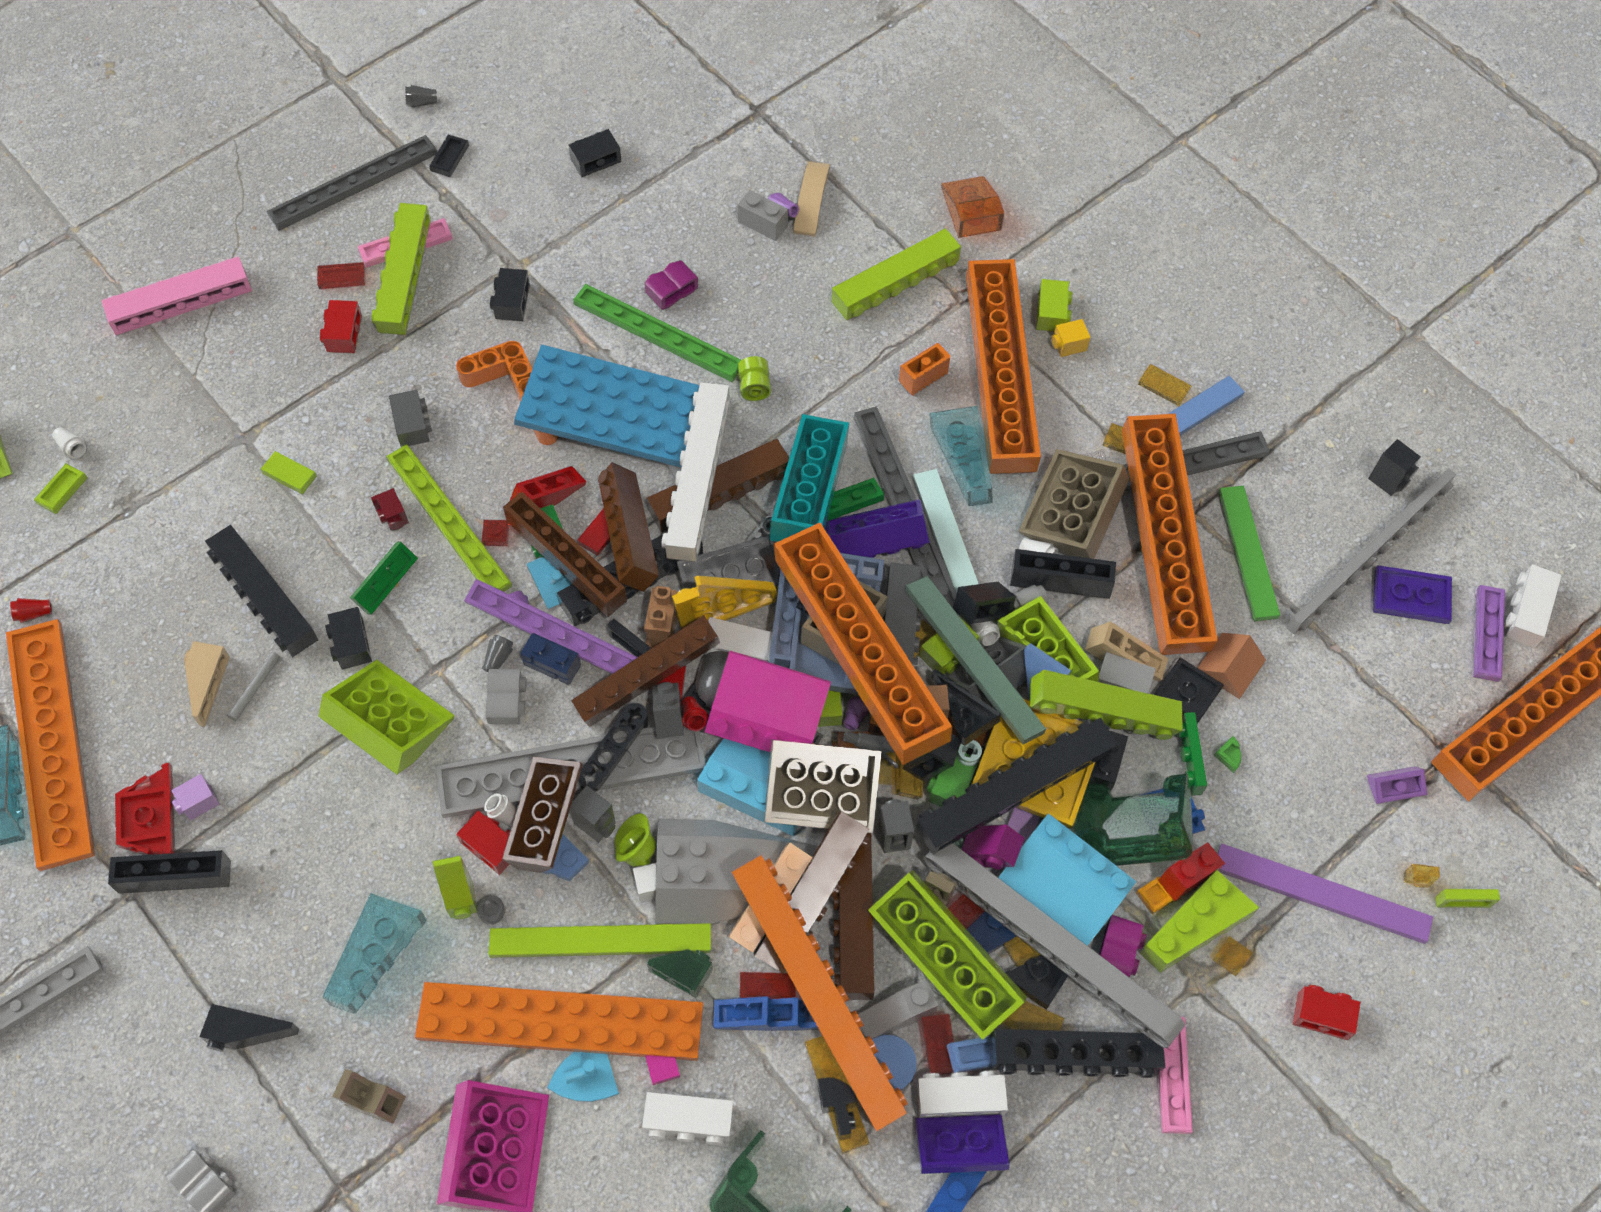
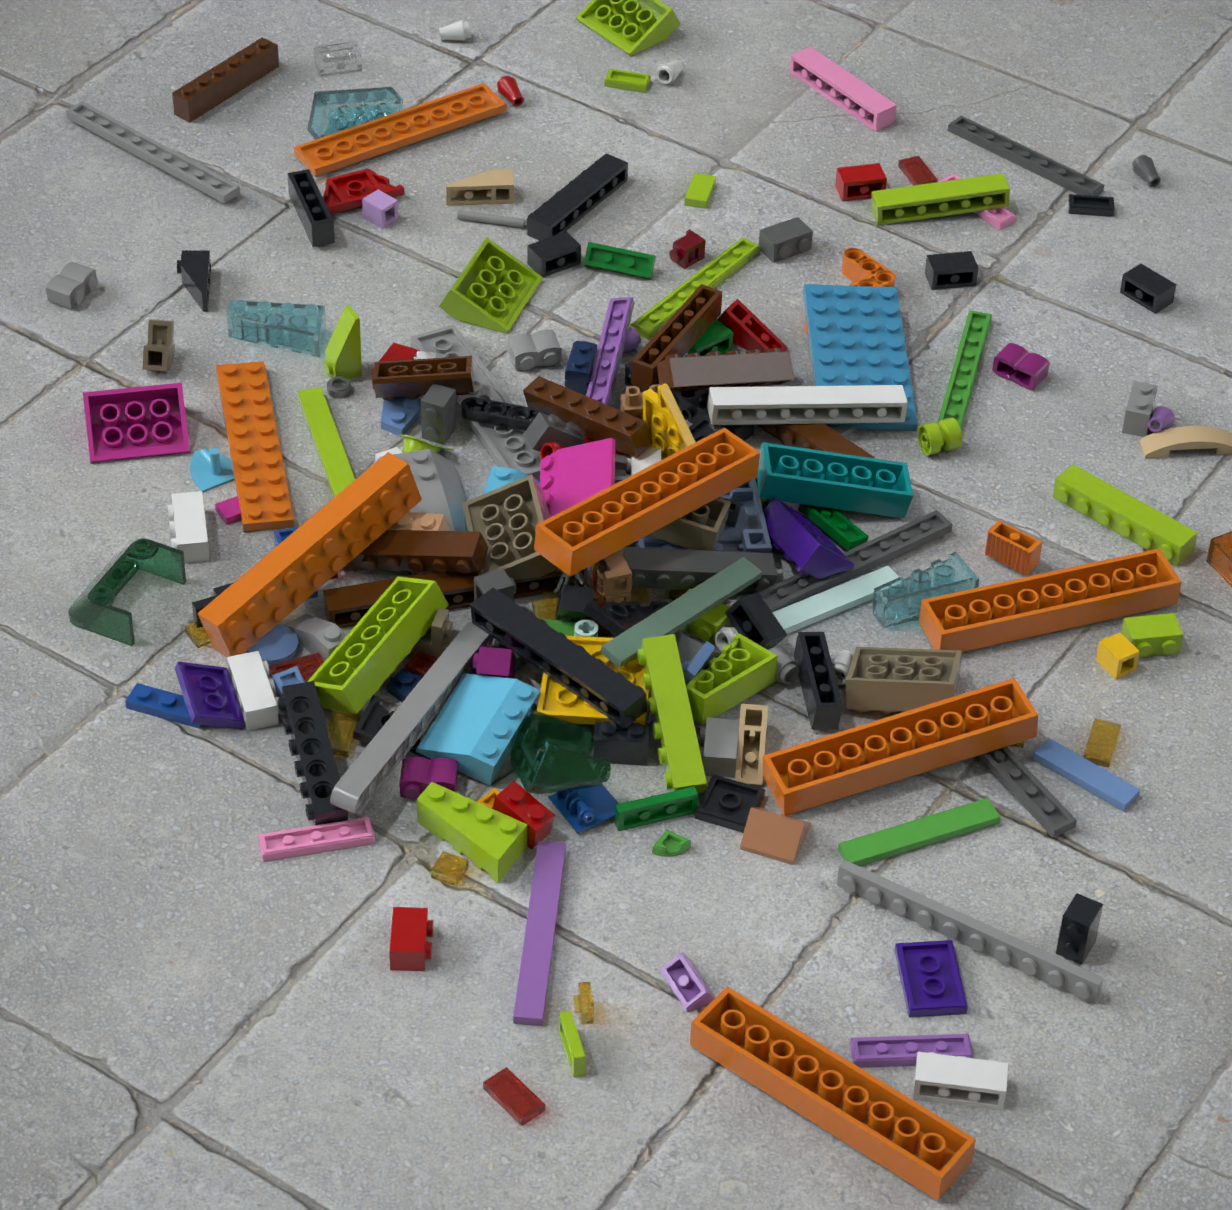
camera: 75 degrees right, 20 degrees down
(497, 652) = (567, 338): dark grey cone -> none
(683, 970) = (314, 497): clear green slope -> none
(1515, 963) = (514, 1096): none -> clear red tile

